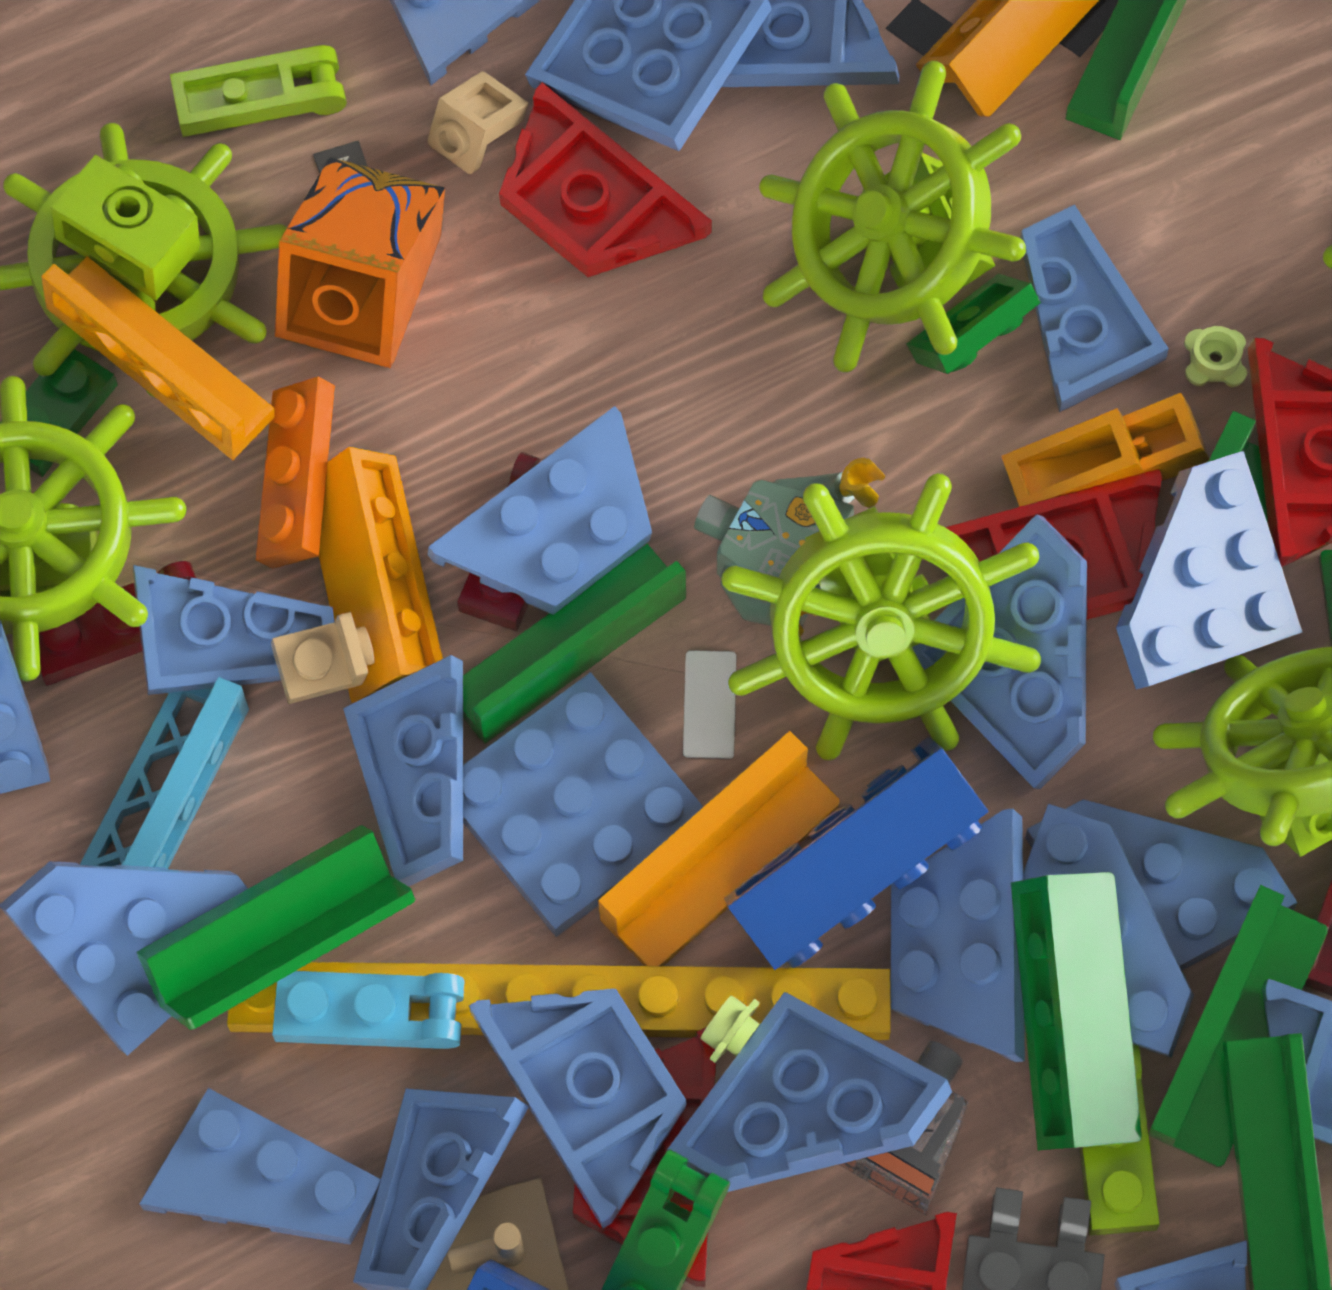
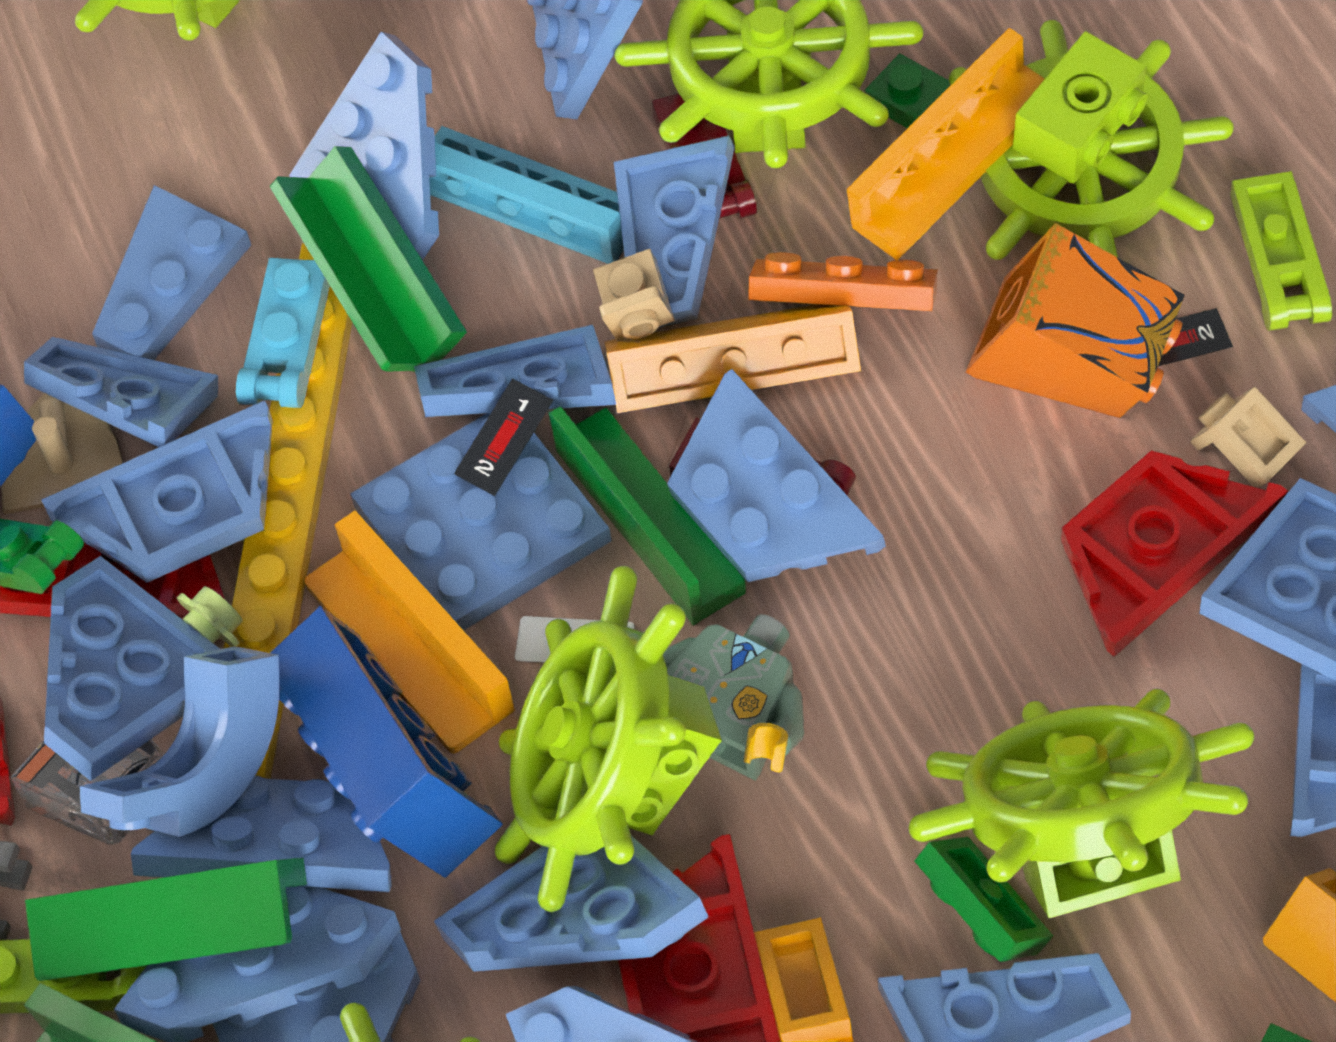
camera: 100 degrees right, 10 degrees down
(502, 766) = (503, 437): none -> black sticker
(904, 995) = (214, 755): none -> medium blue arch

